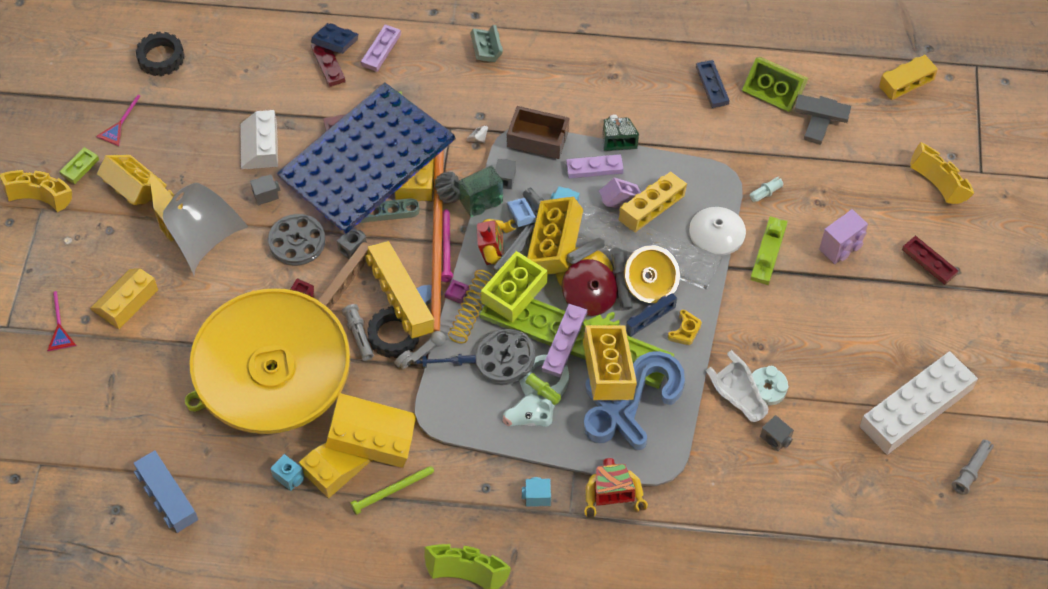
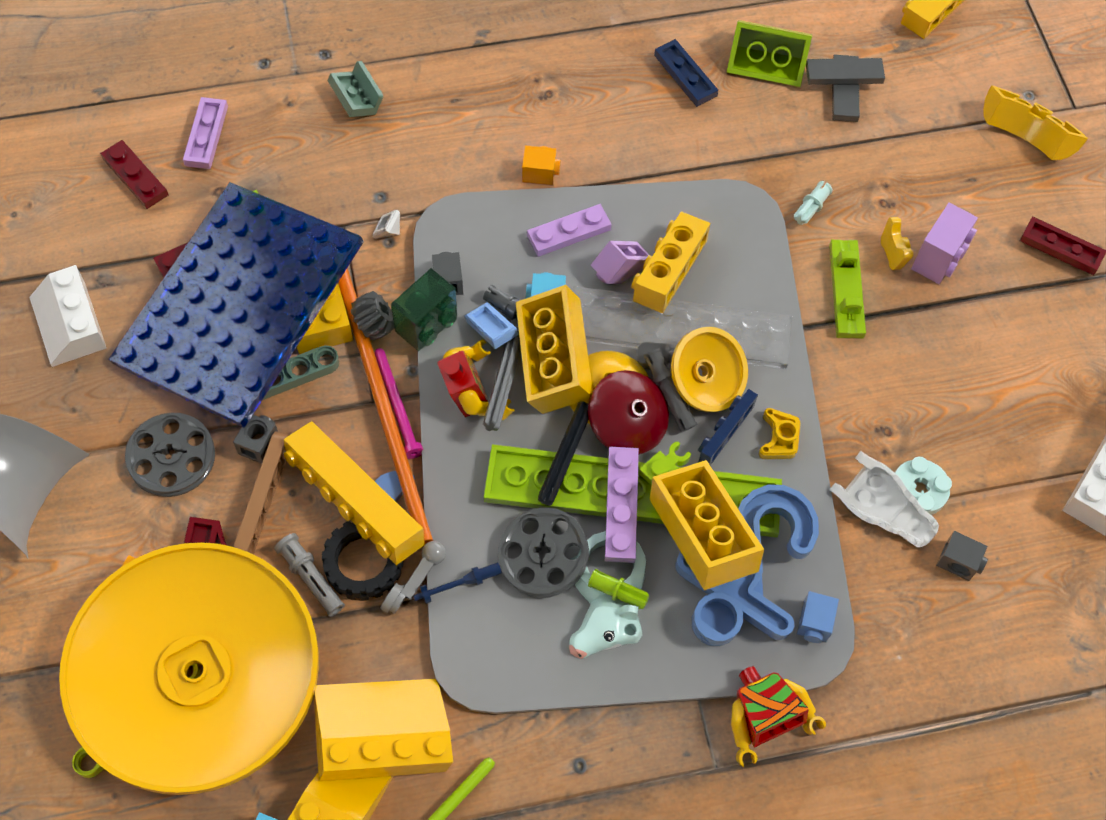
camera: 20 degrees left, 5 degrees up
(265, 189) = (98, 389): dark grey brick -> none
(334, 38) = (133, 134): dark blue plate -> none
(456, 291) = (437, 470): magenta tile -> none
(469, 311) = (457, 438): yellow piece -> none
(514, 286) = (523, 443): neon yellow brick -> none
(536, 304) = (564, 454): none -> black axle
(537, 492) = (660, 751): medium azure brick -> none
(538, 132) = (475, 201): reddish brown piece -> none
(585, 250) = (605, 359): dark grey axle -> none
(590, 120) = (540, 165): none -> light orange brick
(619, 134) = (587, 175): dark green torso -> none
(665, 441) = (817, 617): none -> medium blue brick
(716, 238) = (766, 290): white dish -> none
(813, 231) = (896, 247): none -> yellow piece

